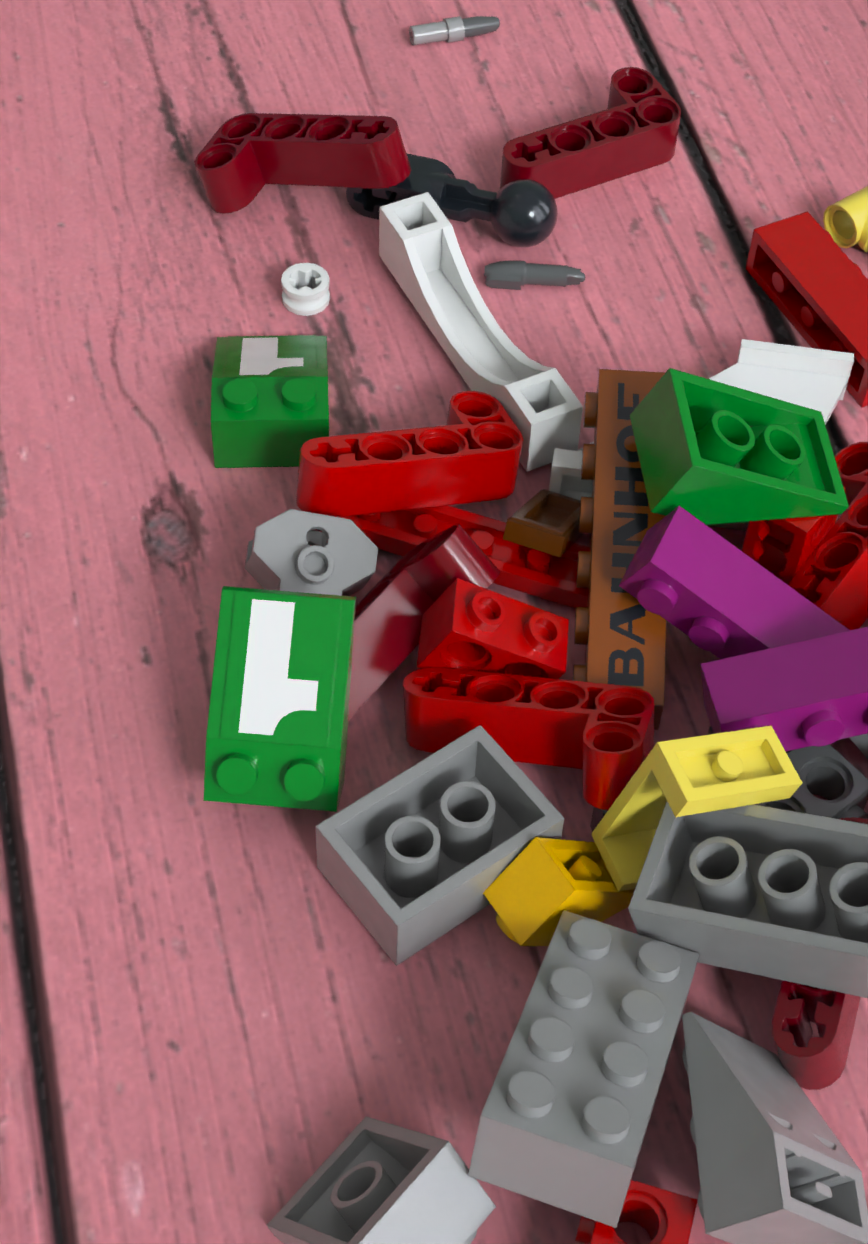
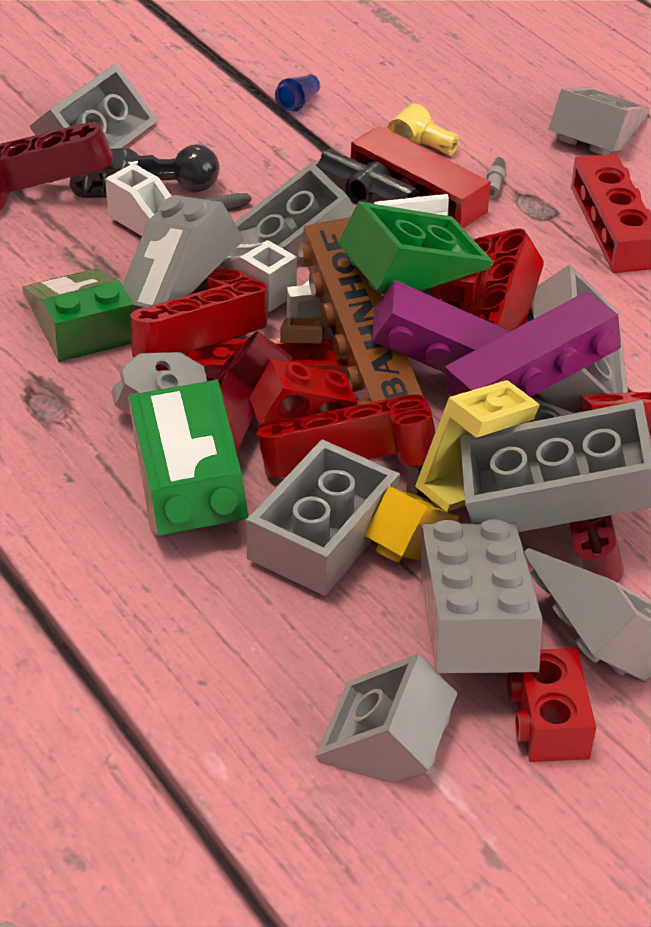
camera: 20 degrees left, 10 degrees down
(305, 289) = (69, 245): white bush -> none
(425, 354) = (180, 250): none -> light grey slope
(433, 93) = (105, 100): none -> light grey slope
(453, 29) = (75, 83): light grey piece -> none
(626, 138) = (239, 112): dark red beam -> none
(629, 324) = (299, 202): none -> light grey slope
(722, 120) = (296, 91): none -> clear blue cone
(752, 296) = (363, 182): none -> black piece

